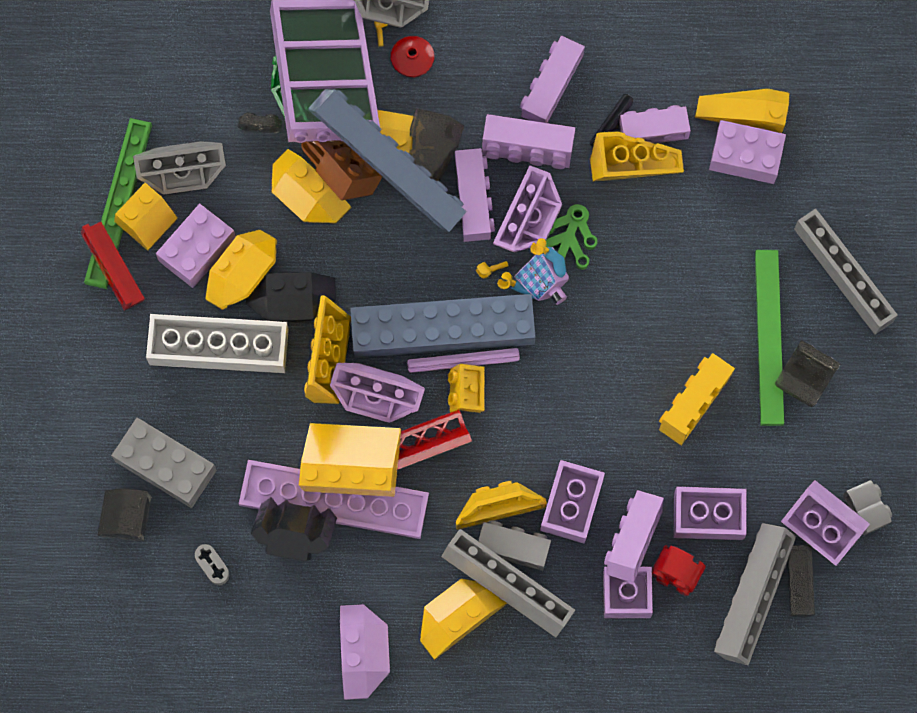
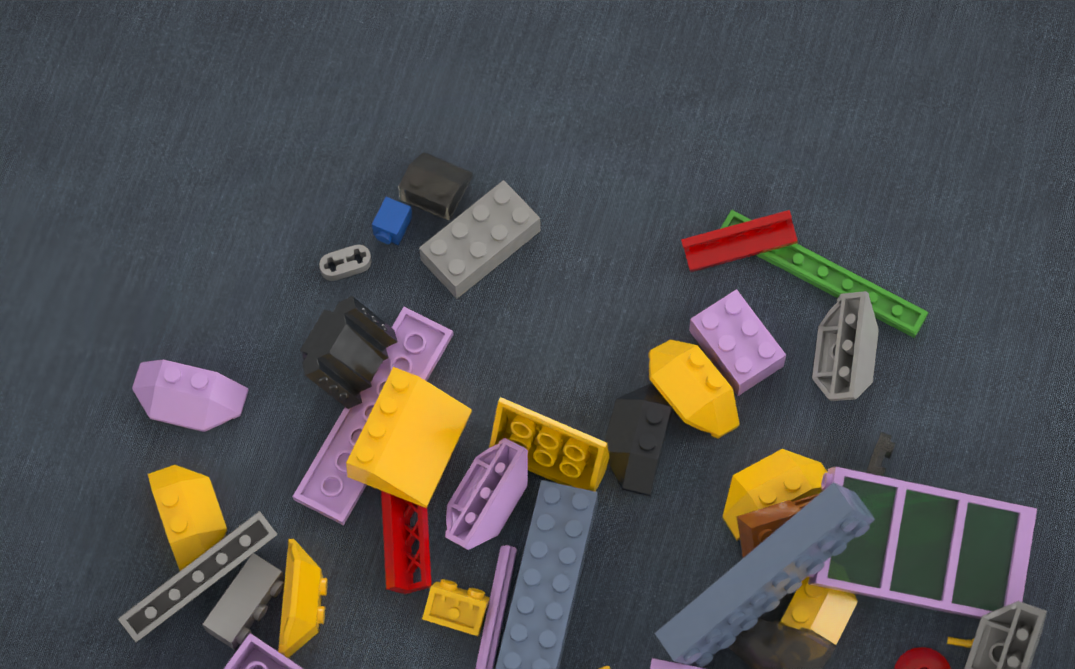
camera: 110 degrees right, 5 degrees down
(145, 216) = (790, 294): yellow slope -> none
(167, 537) = (391, 221): none -> blue brick
(217, 343) = (603, 333): white brick -> none

